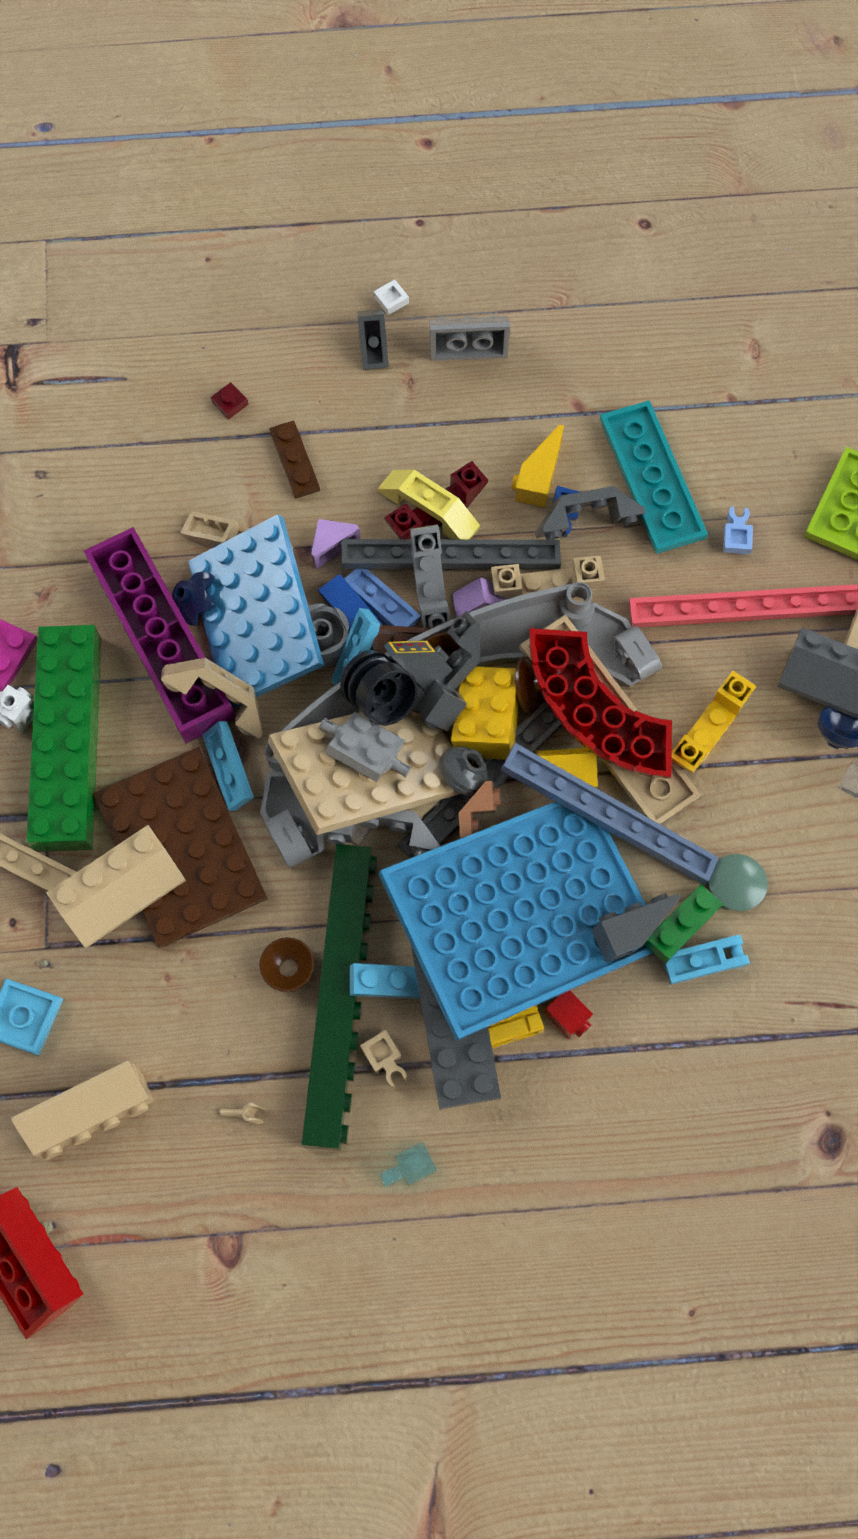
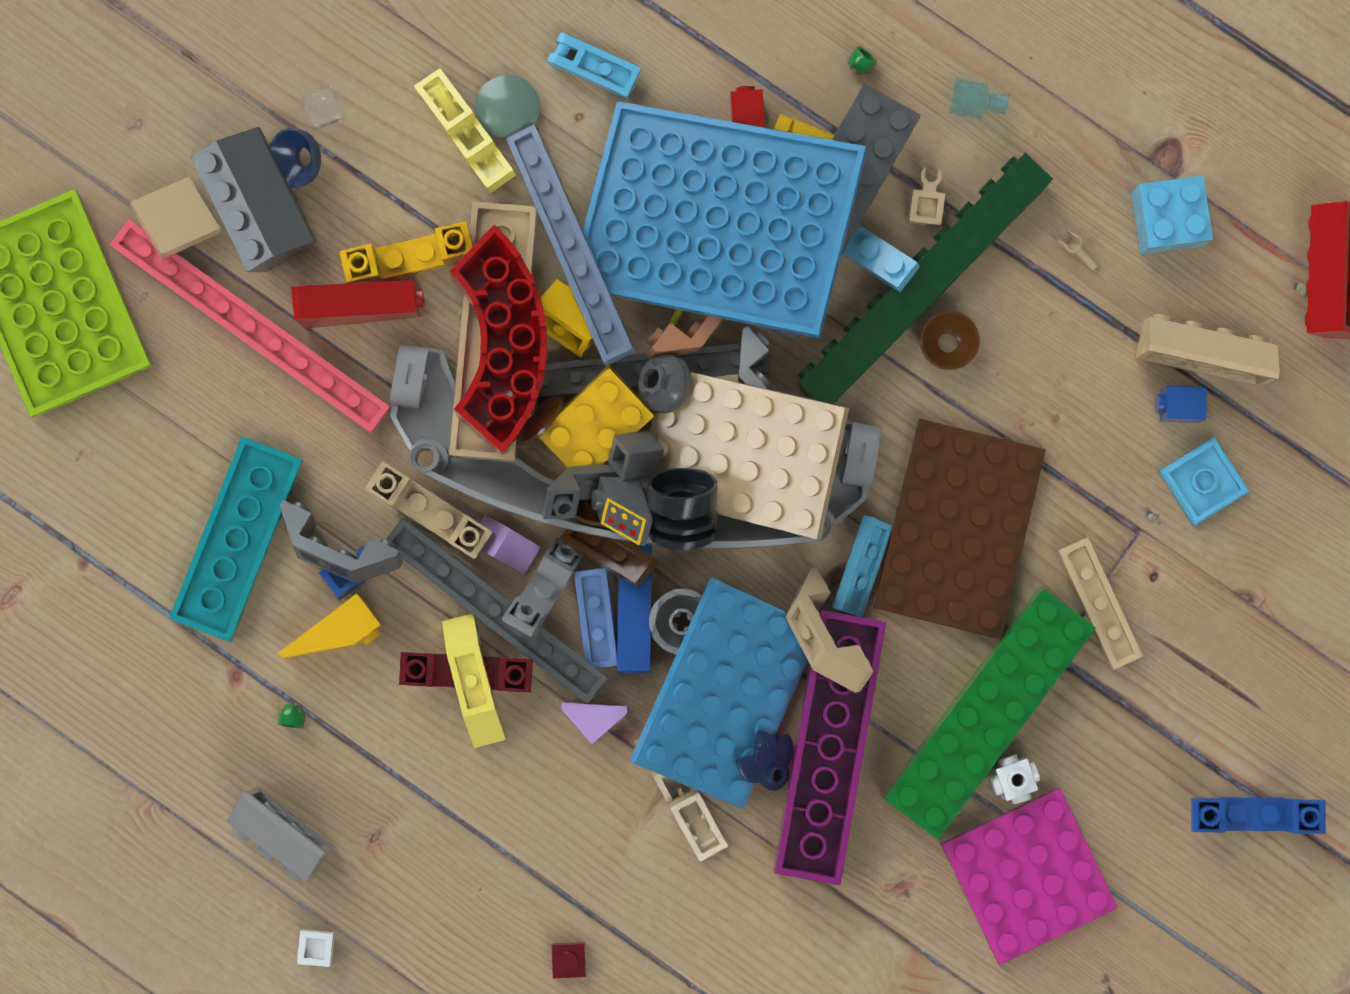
camera: 140 degrees left, 15 degrees up
(78, 1057) = (1182, 404): none -> blue brick
(116, 886) = (1045, 523): tan slope -> none
(189, 1196) = (1172, 215): none -> medium azure brick
(294, 459) = (557, 840): reddish brown plate -> none
(359, 640) = (668, 573): medium azure plate -> none
(365, 746) = (739, 461): light grey plate -> none
(373, 339) = (374, 912): dark grey slope -> none
(518, 1125) = (861, 59): none -> green hinge
(521, 404) = (291, 717): none -> green hinge
(629, 931) = (641, 128): dark grey slope -> none
(683, 923) = (587, 107): green plate -> none
(715, 665) = (355, 303): none -> red slope
(737, 535) = (214, 413): light blue plate -> none
(758, 842) = (465, 130): none -> light yellow slope

